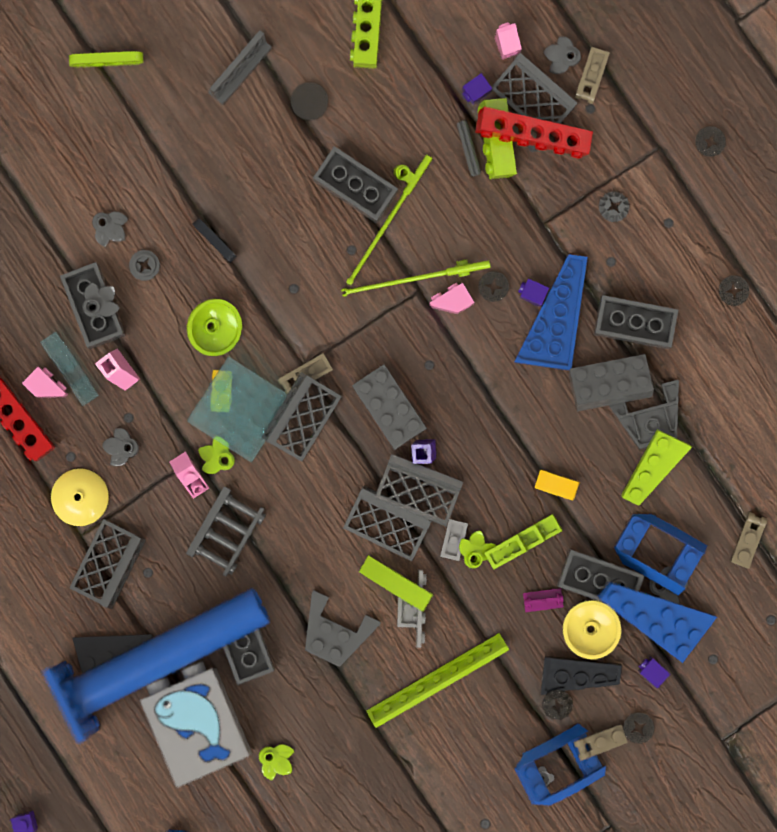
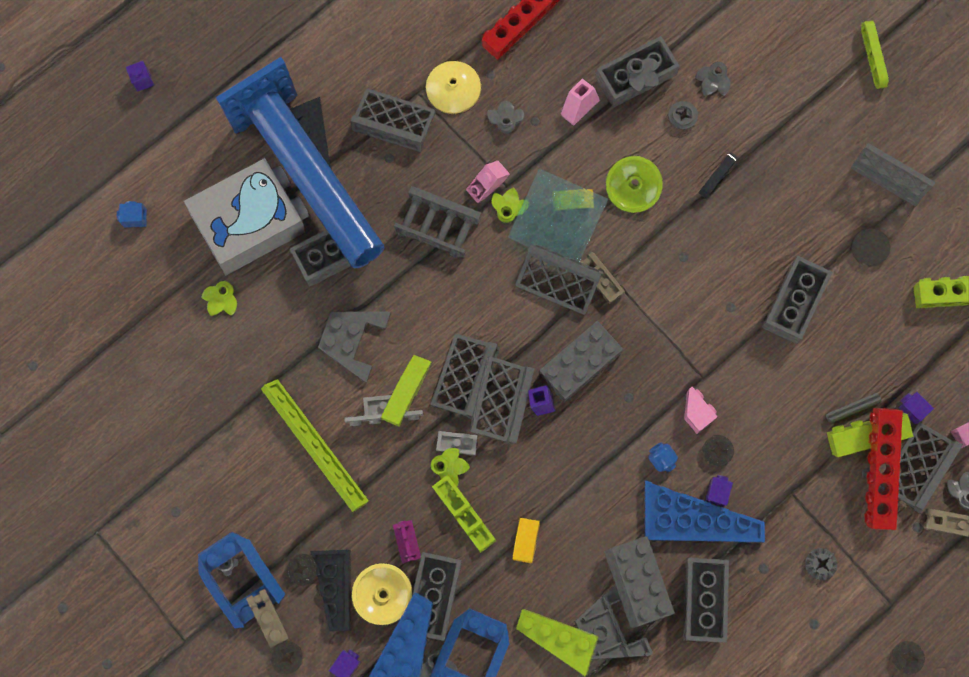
camera: 80 degrees right, 10 degrees down
(42, 384) = (554, 39): bright pink slope -> none
(69, 368) = (574, 61): clear light blue slope -> none
(411, 179) = (810, 356): lime piece -> none
(462, 268) = (731, 417): lime piece -> none
(494, 341) = (663, 457): none -> blue head

